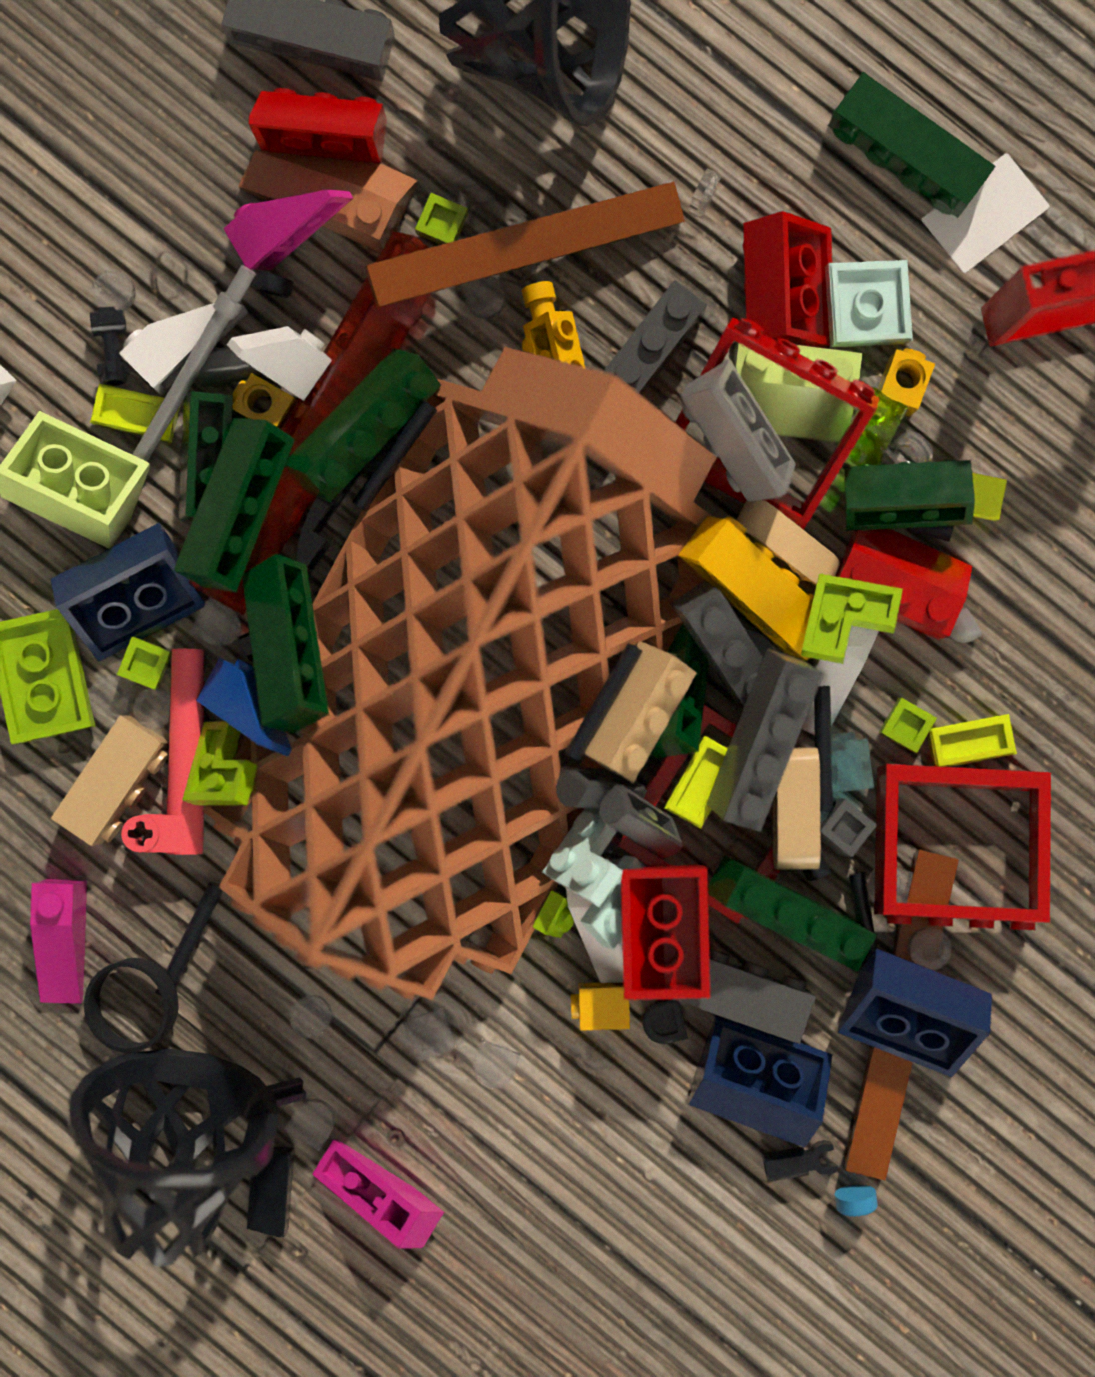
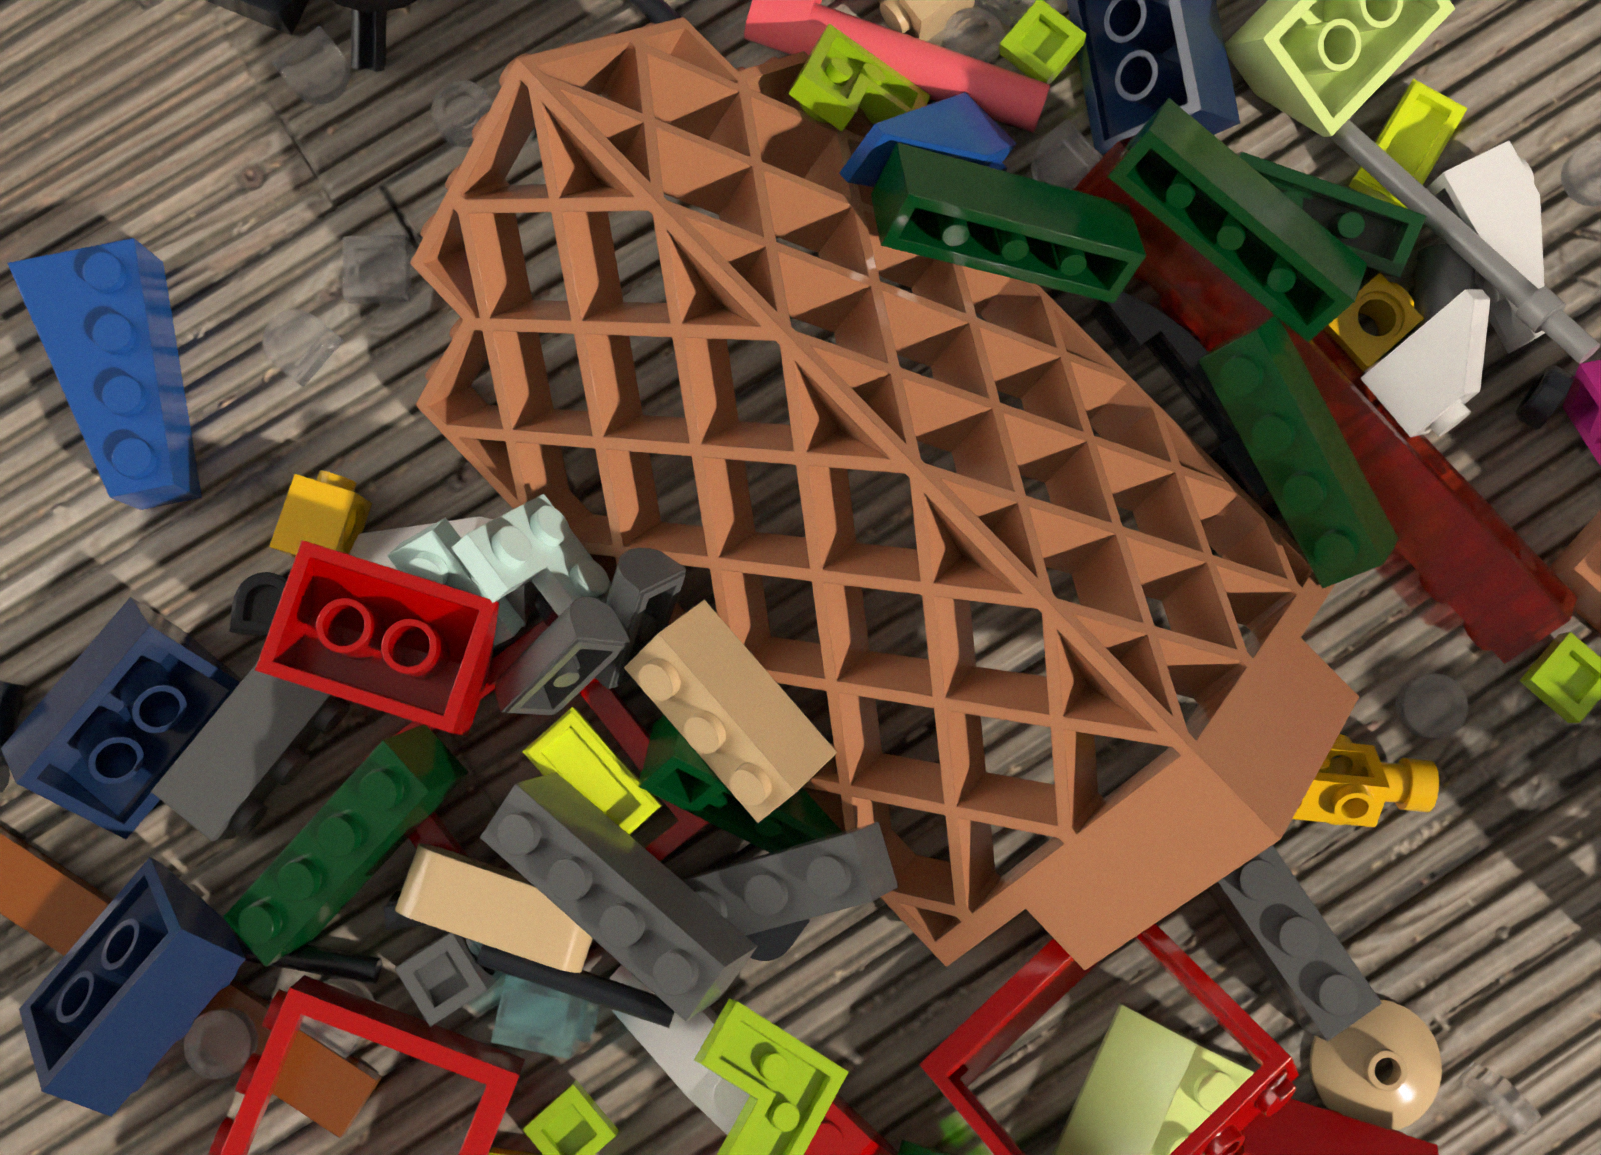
camera: 105 degrees right, 5 degrees down
(110, 324) = (1550, 147): black bar -> none
(378, 1196) = (172, 120): dark pink slope -> none
(394, 455) = (1237, 485): black bar -> none
(524, 244) = (1503, 790): dark orange tile -> none
(547, 1170) = (118, 363): none -> blue wedge
(554, 916) = (475, 493): lime plate -> none
(603, 702) = (761, 663): black bar -> none
(713, 287) = (1346, 1068): none -> tan dish
(738, 433) = (1111, 1019): light grey slope -> none
(751, 581) = (873, 959): yellow brick -> none
(788, 543) = (908, 1028): tan beam -> none

